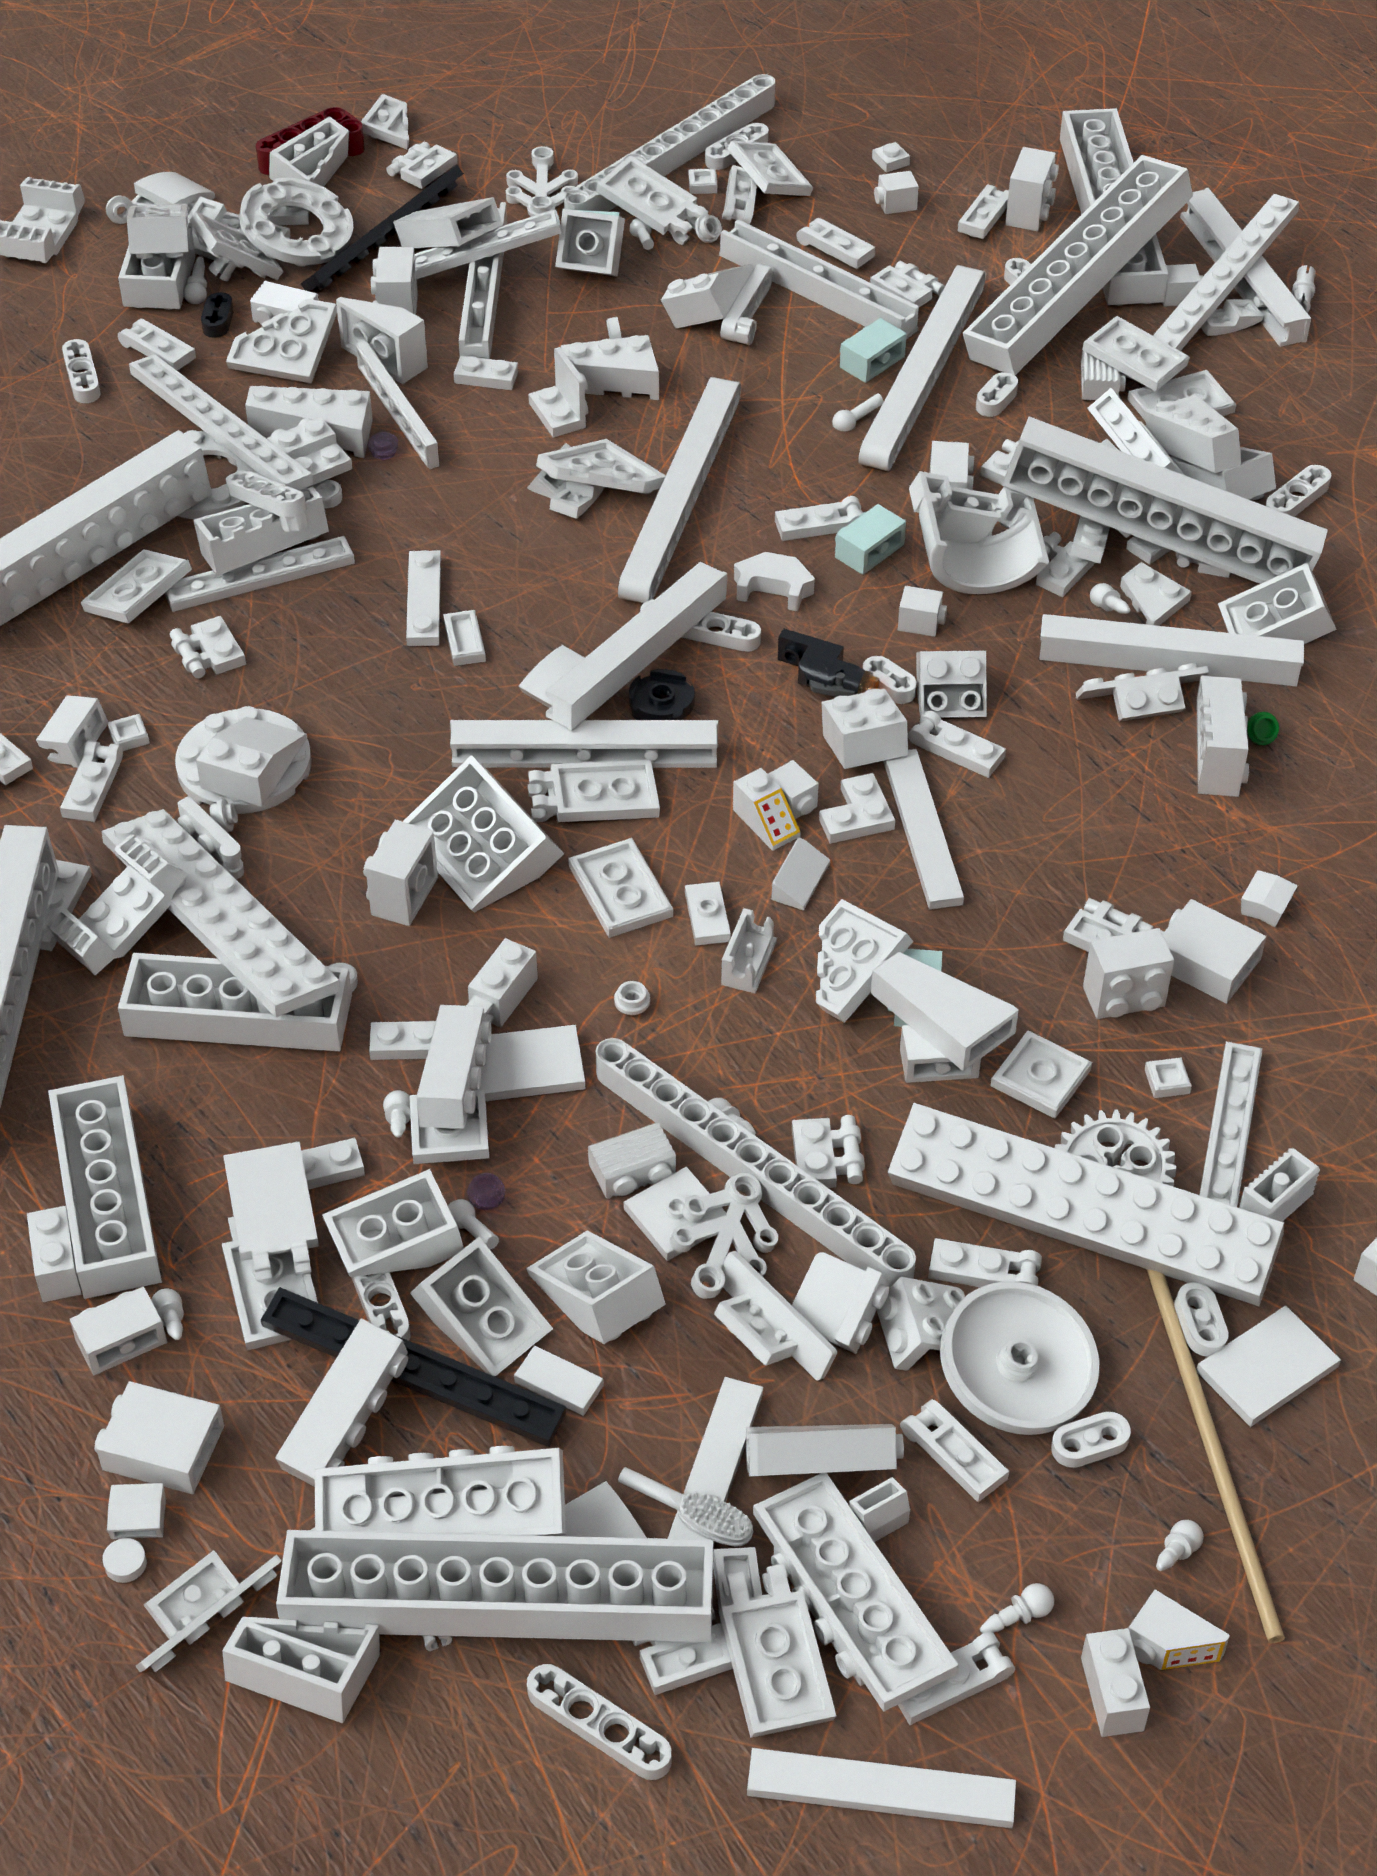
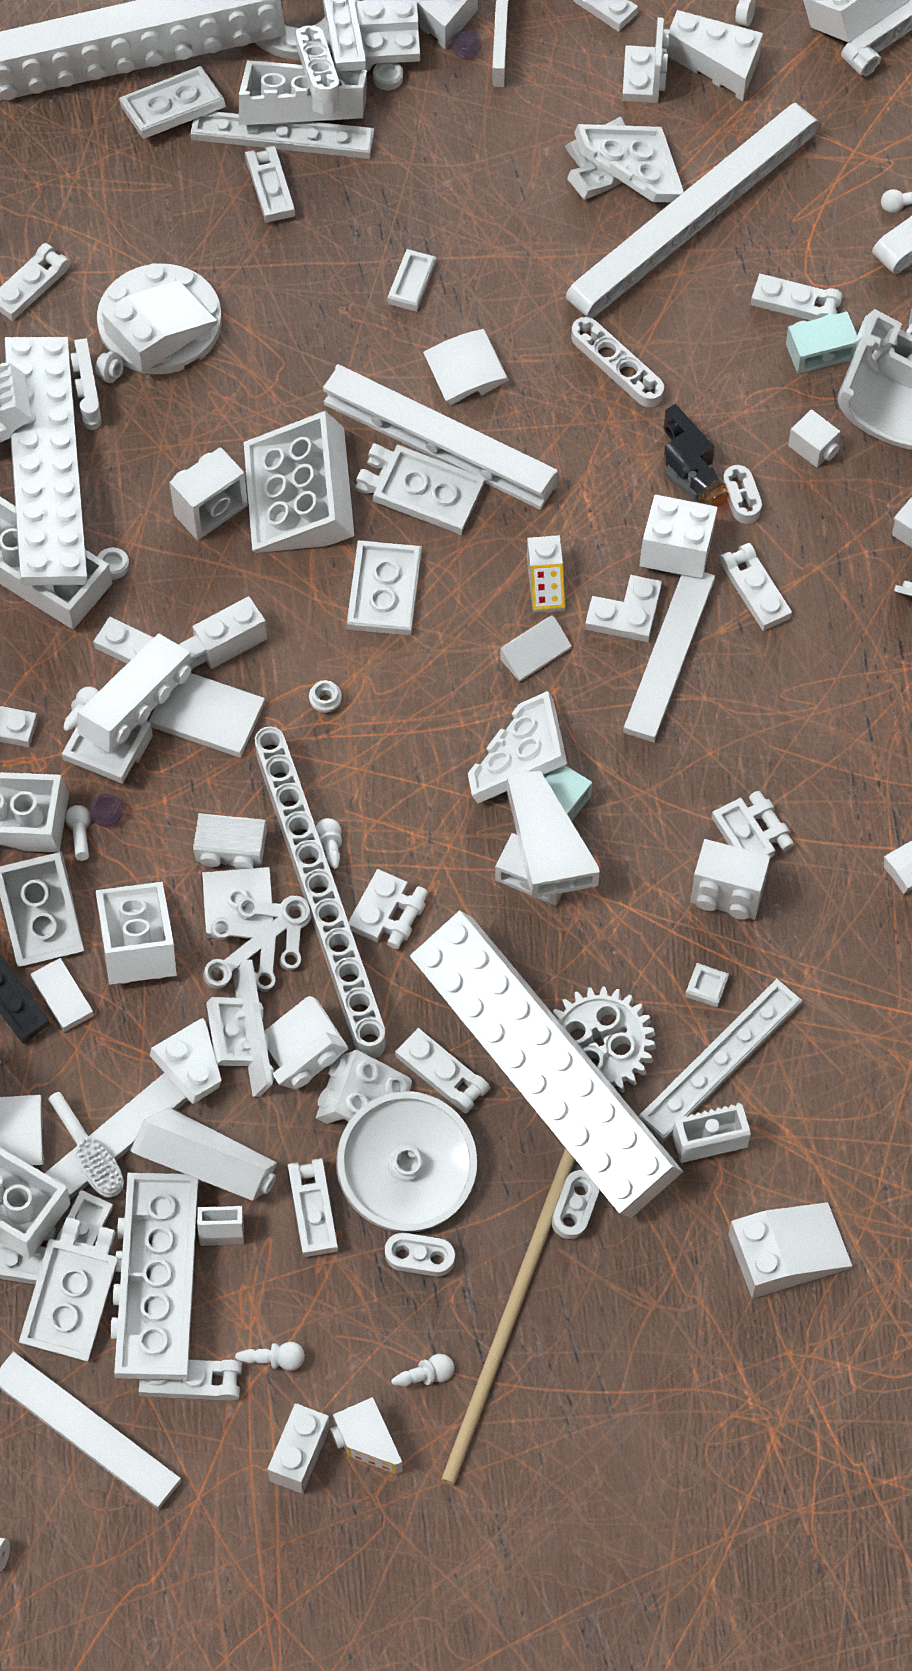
camera: 30 degrees right, 15 degrees up
(71, 727) = (40, 223): white hinge -> none
(128, 732) = (85, 247): white tile -> none
(215, 641) = (205, 192): white plate -> none
(277, 613) = (270, 184): none -> white plate
(423, 598) = (402, 223): white plate -> none
(636, 645) = (537, 362): white tile -> none
(645, 696) = (535, 436): black plate -> none
(707, 913) = (437, 647): white plate -> none
(737, 1374) = (189, 1061): none -> white wing
(748, 953) = (442, 701): white hinge -> none
(774, 575) = (714, 339): white piece -> none
(798, 788) = (580, 566): white brick -> none
(952, 683) = (789, 525): white slope -> none
(1041, 1074) = (603, 930): white plate -> none
(1212, 950) = (821, 889): white brick -> none
(1268, 1365) = (603, 1269): white tile -> none

